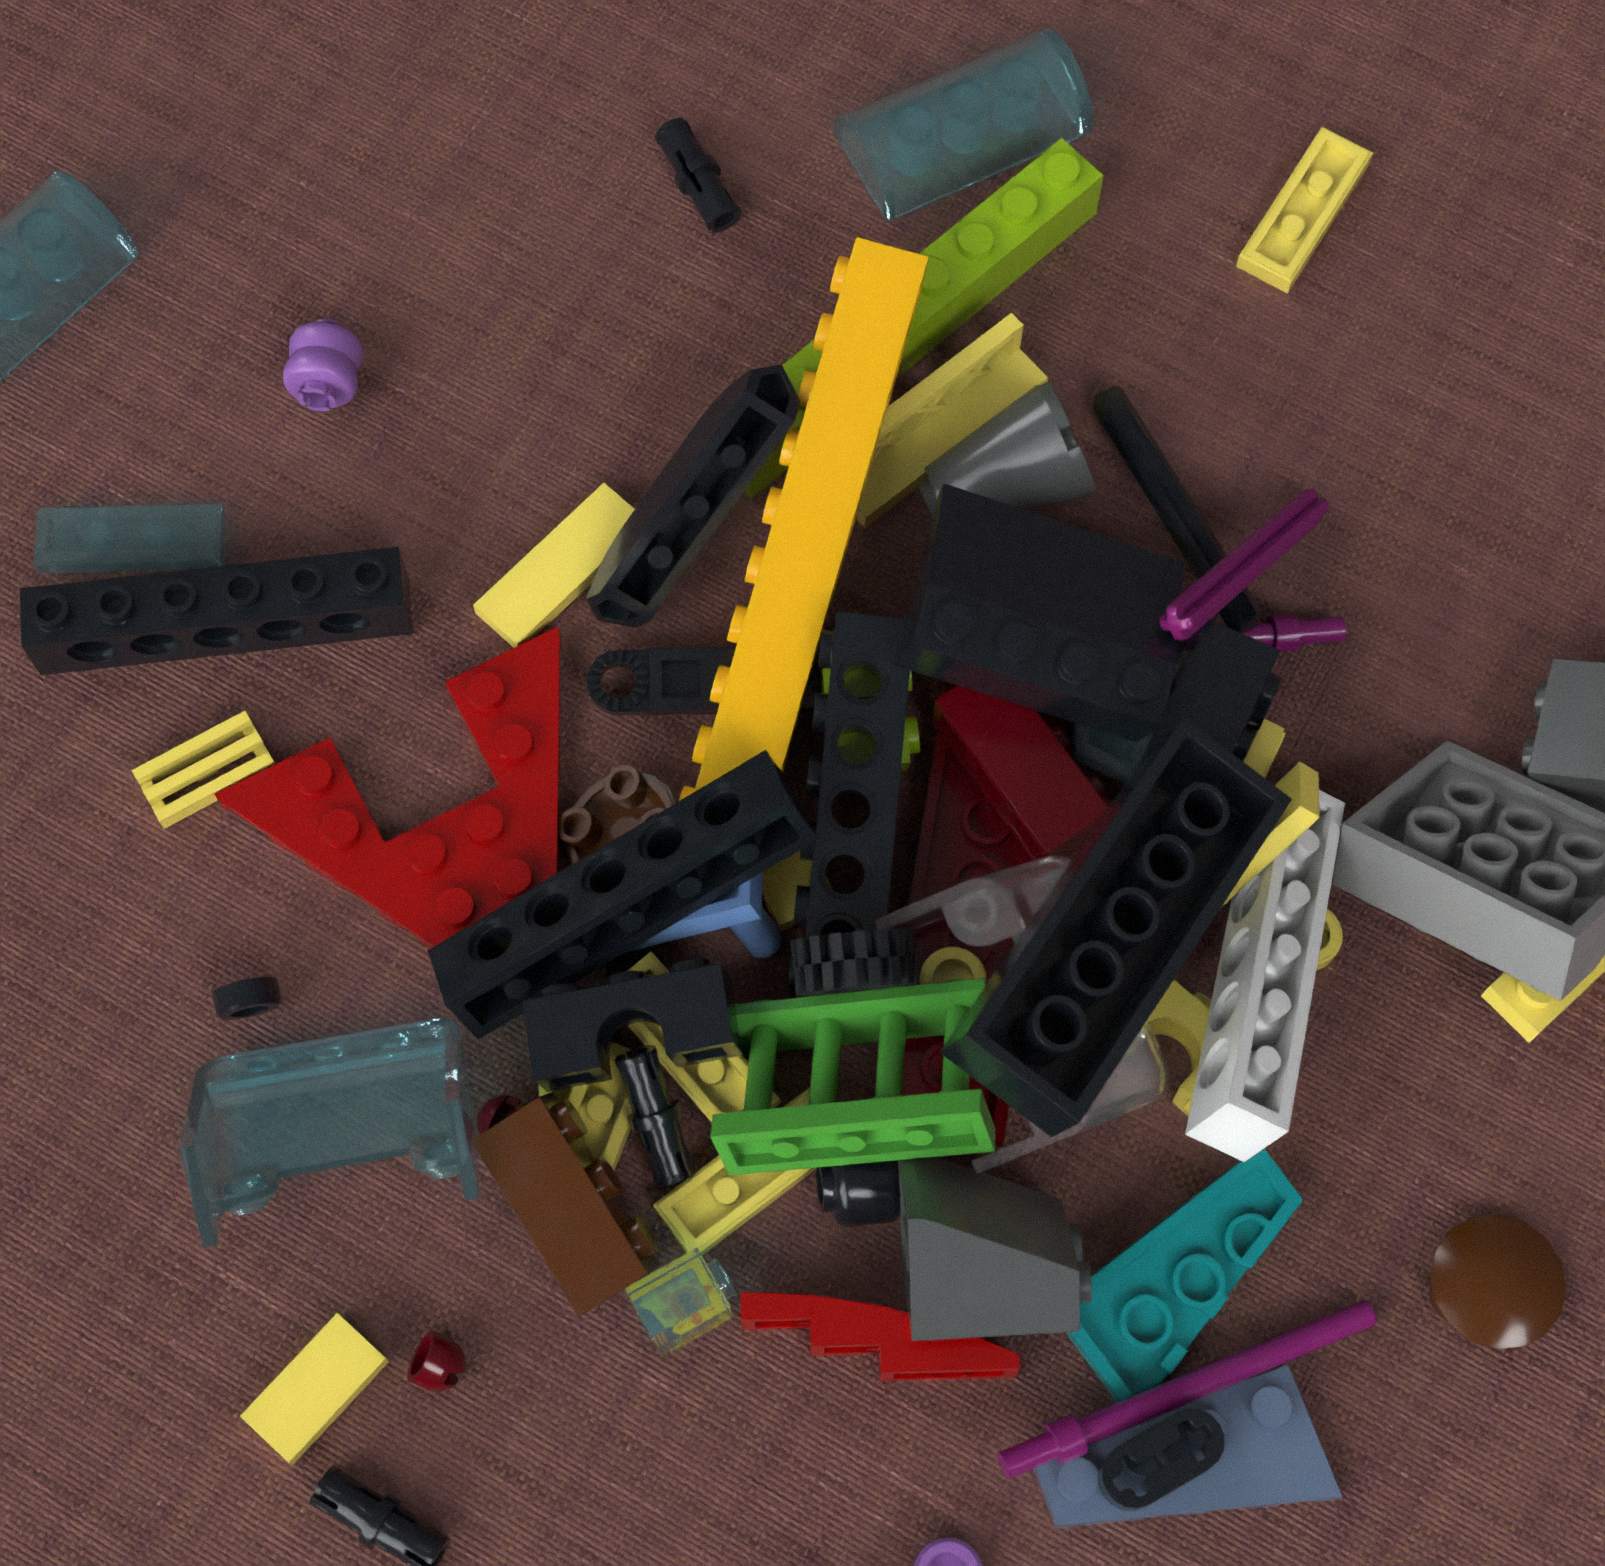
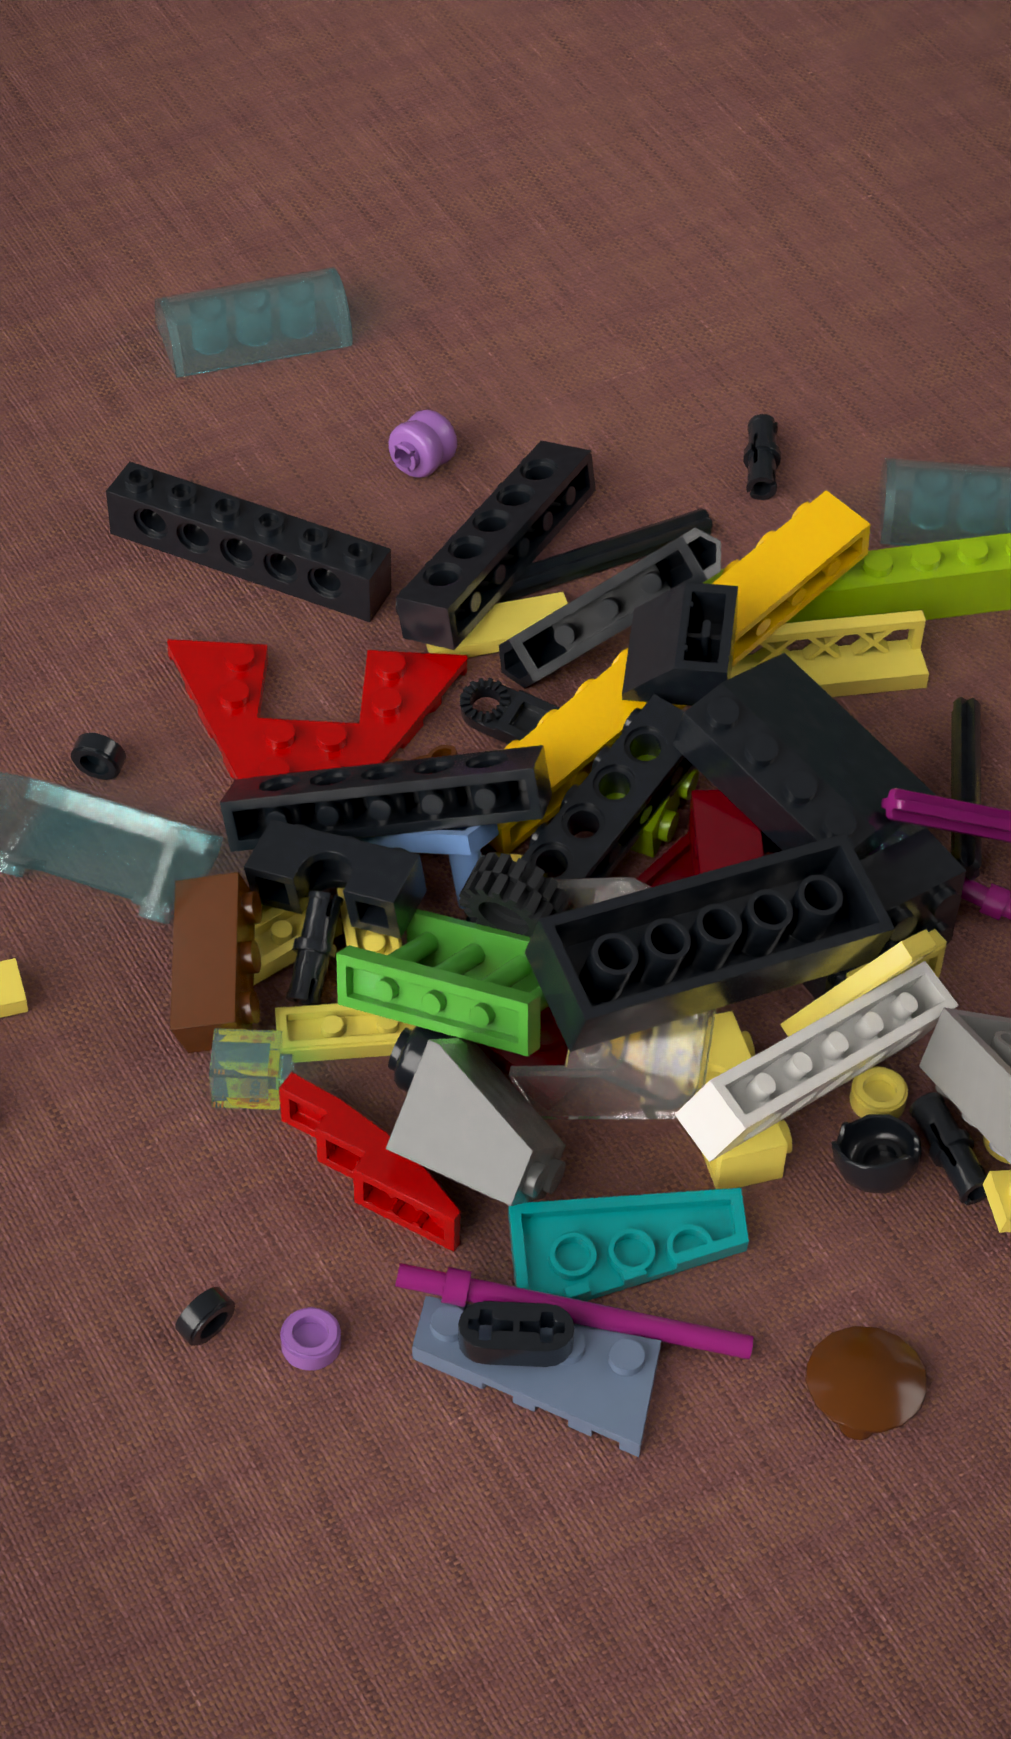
camera: 30 degrees right, 20 degrees down
(129, 538) = (218, 474): clear light blue tile -> none
(193, 750) = (169, 621): light yellow tile -> none
(436, 1363) = (55, 1018): dark red hinge -> none
(505, 370) = (495, 545): none -> black brick
(609, 406) = (605, 554): none -> black axle
(833, 535) = (682, 644): none -> black slope
(1016, 457) = (881, 696): dark grey cone -> none
(1360, 1017) = (877, 1153): none -> black hair
(1420, 964) = (950, 1147): none -> black pin

